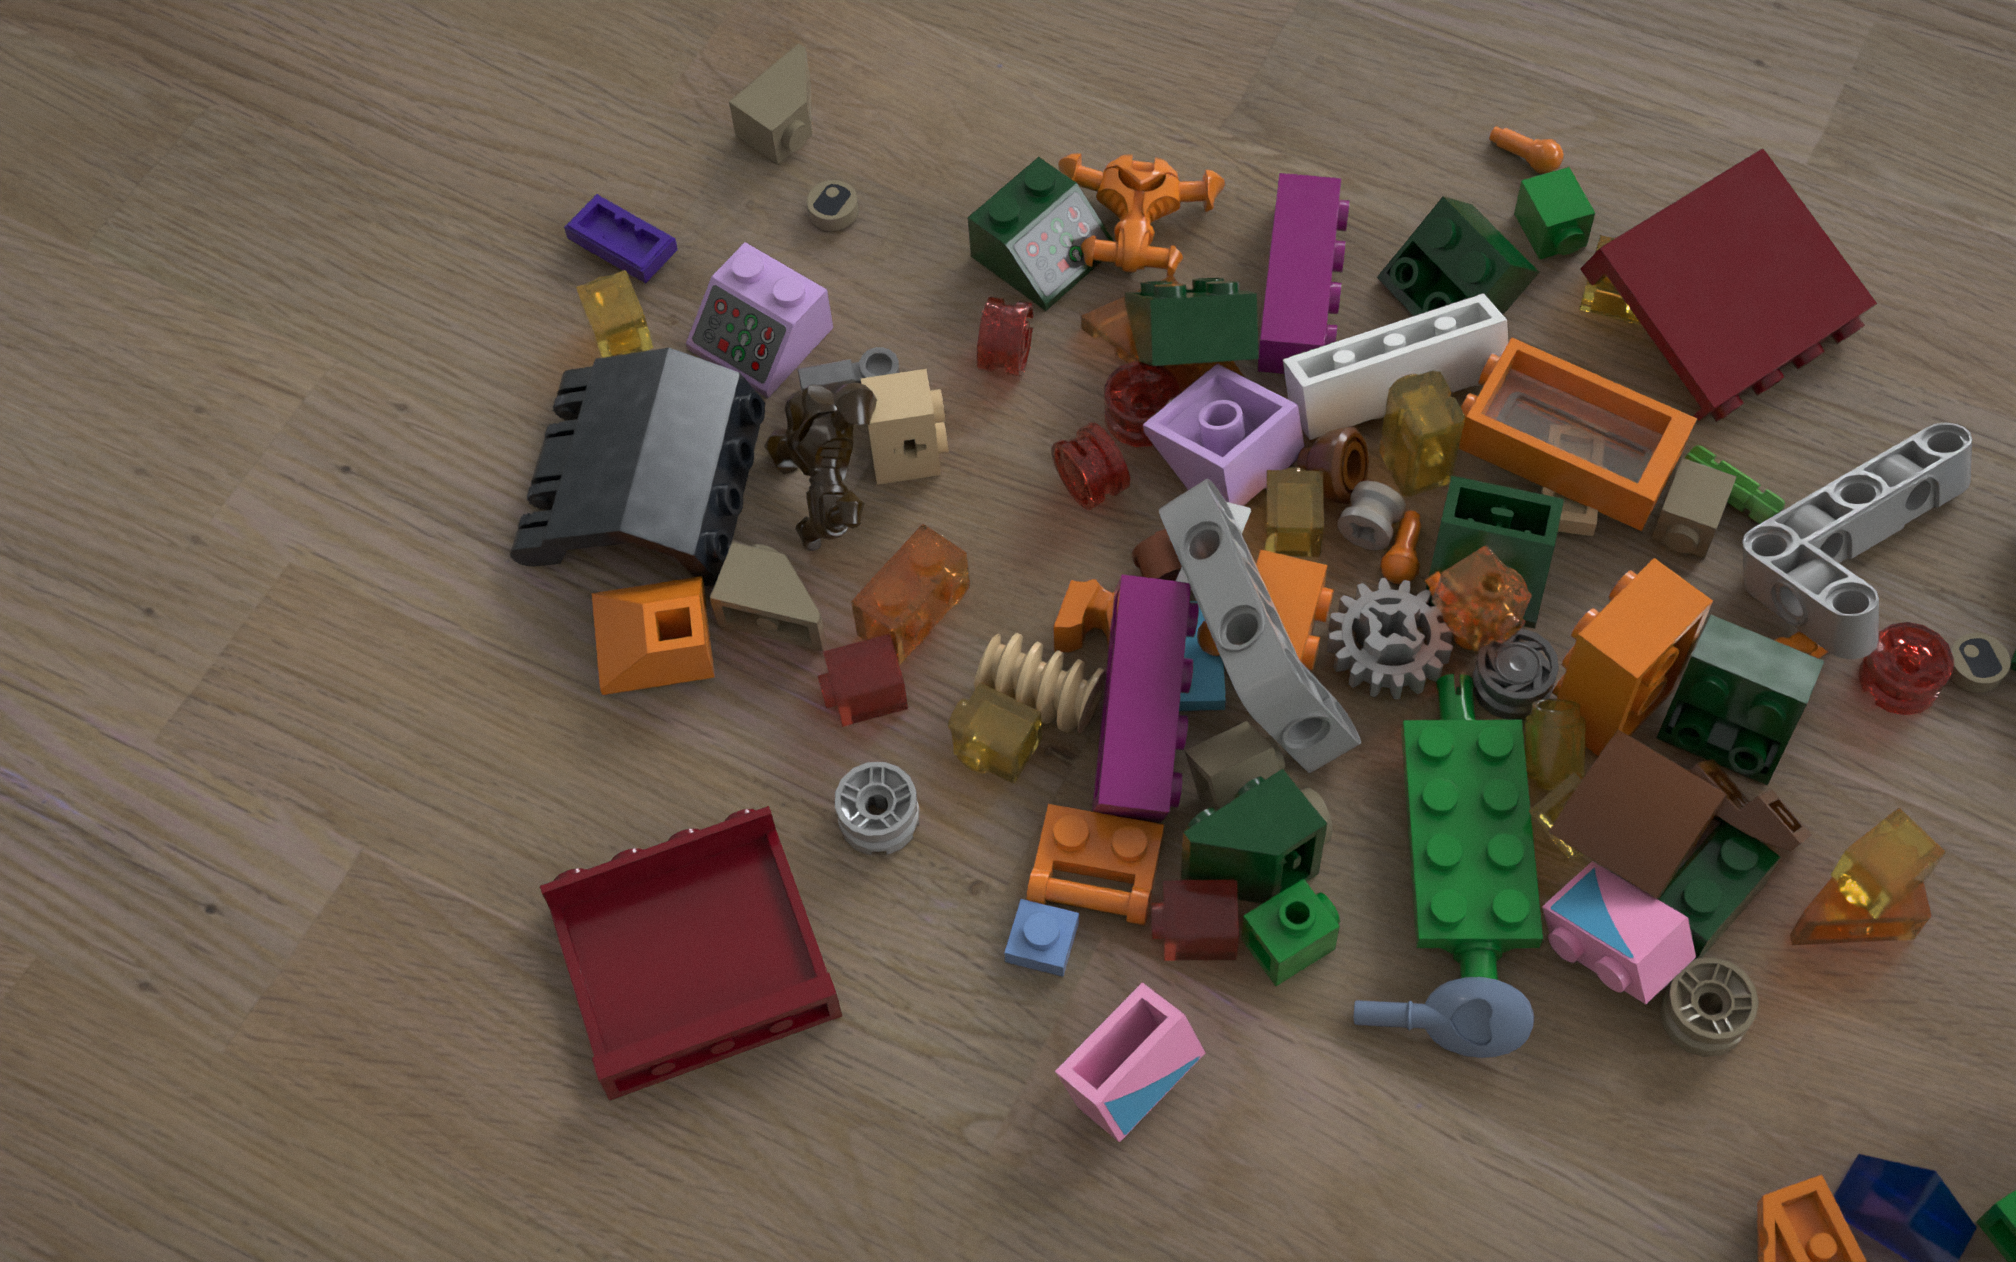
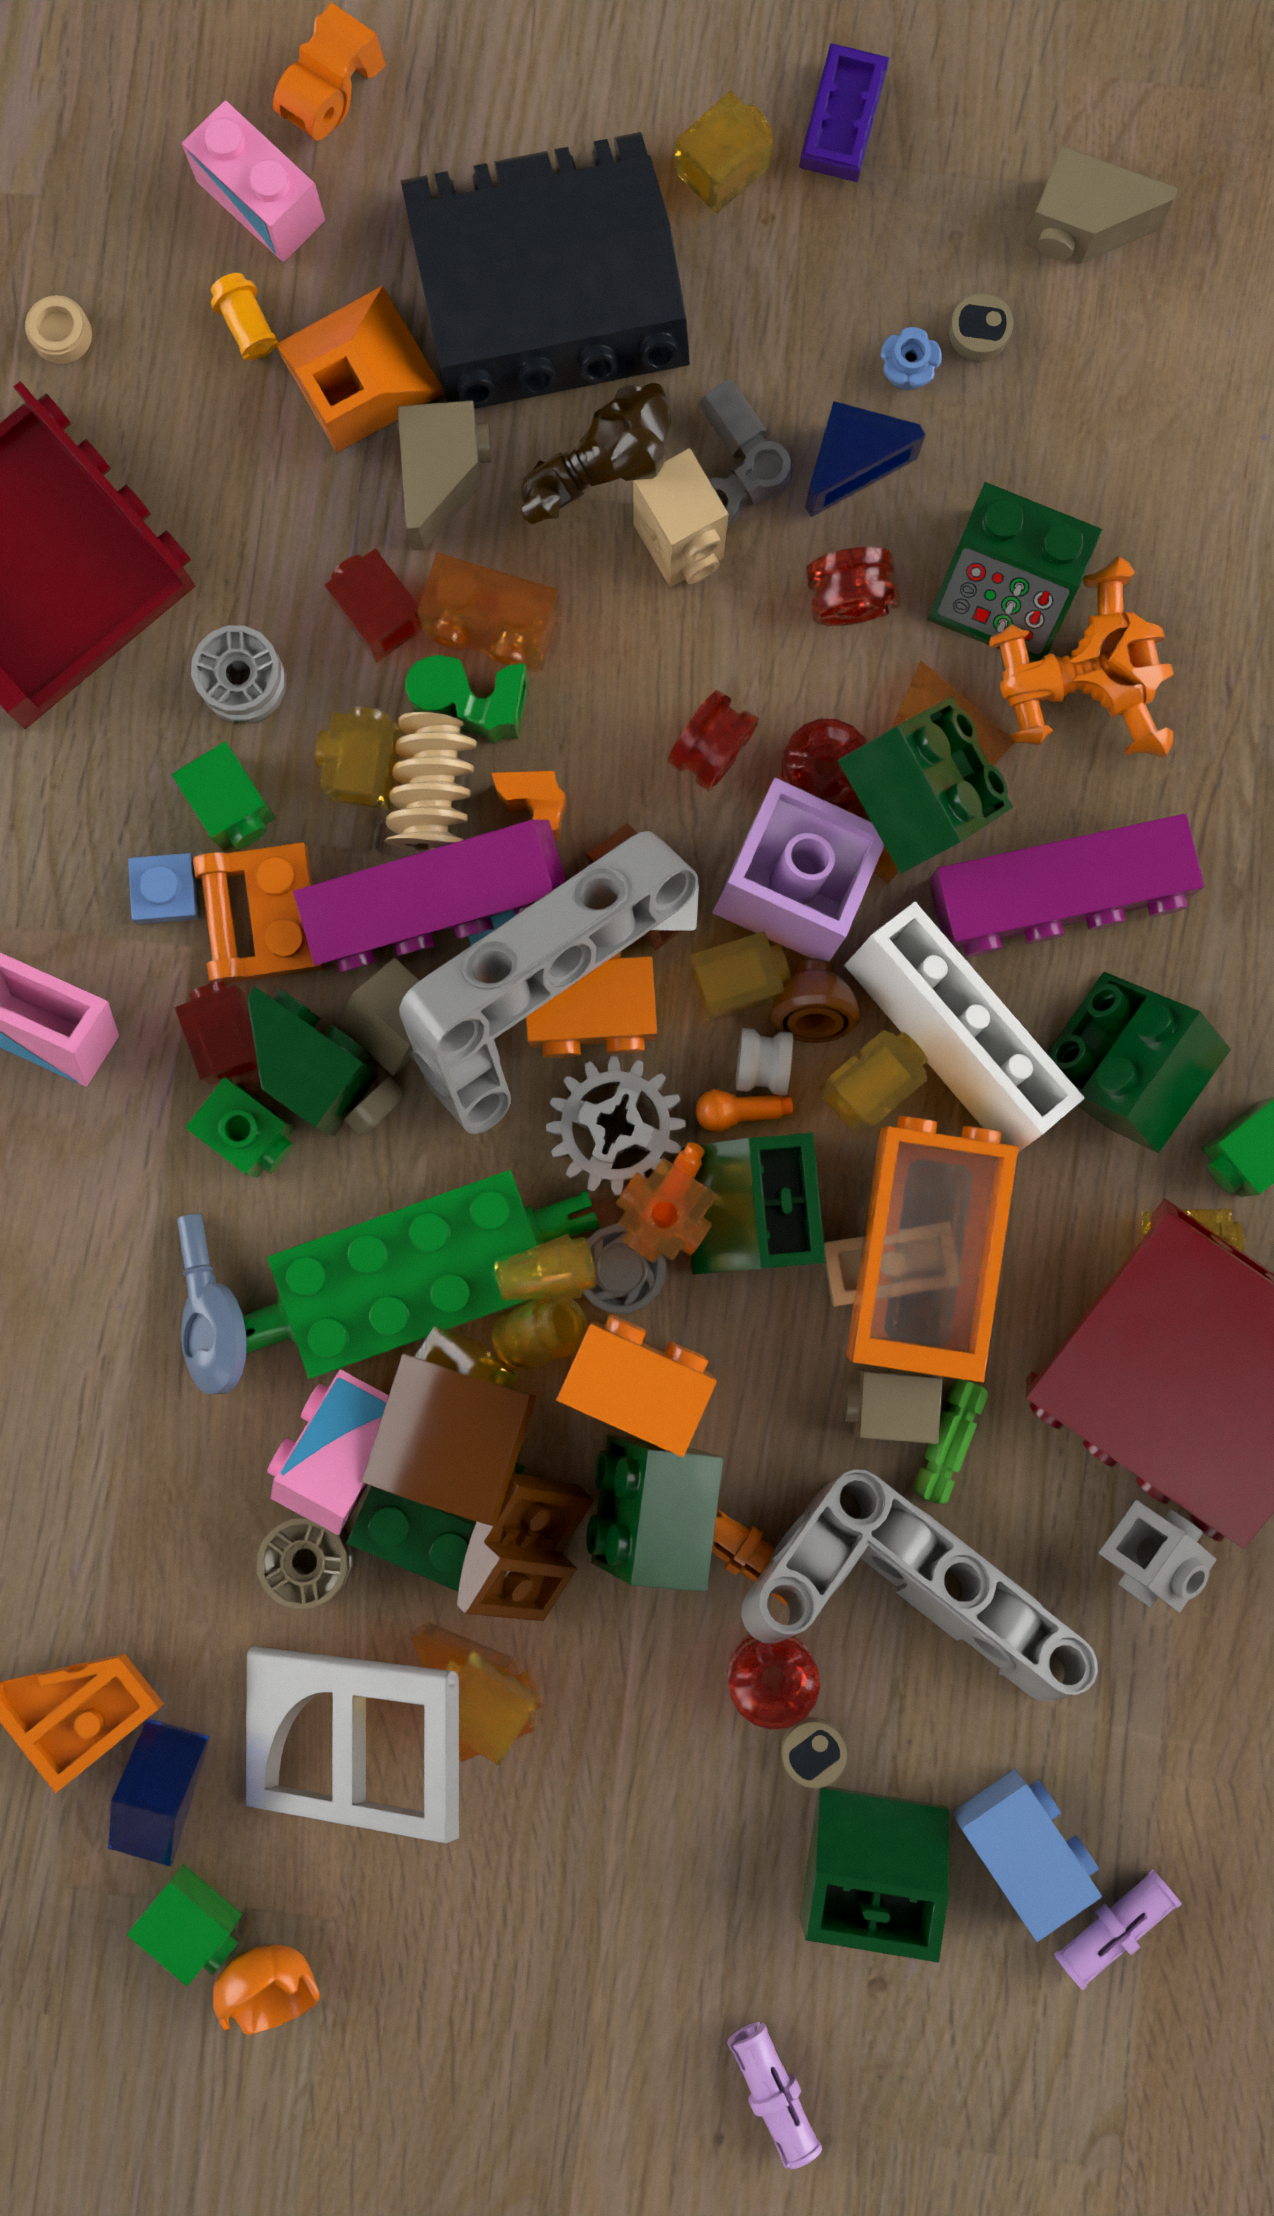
camera: 65 degrees right, 25 degrees up
(391, 573) = (319, 86): none -> orange leg
(455, 656) = (254, 181): none -> bright pink brick
(494, 864) = (58, 329): none -> tan tile
(562, 707) = (236, 301): none -> light orange pin
(759, 319) = (782, 310): lavender slope -> none
(836, 265) = (908, 374): none -> medium blue plate
(891, 308) = (859, 451): none -> clear blue slope
(961, 644) = (441, 687): none -> green leg
(985, 851) = (224, 798): none -> green brick
(1507, 701) = (548, 1271): none -> clear yellow cone
(1819, 1058) = (286, 1680): none -> light grey window
(1852, 362) = (1158, 1556): none -> light grey brick

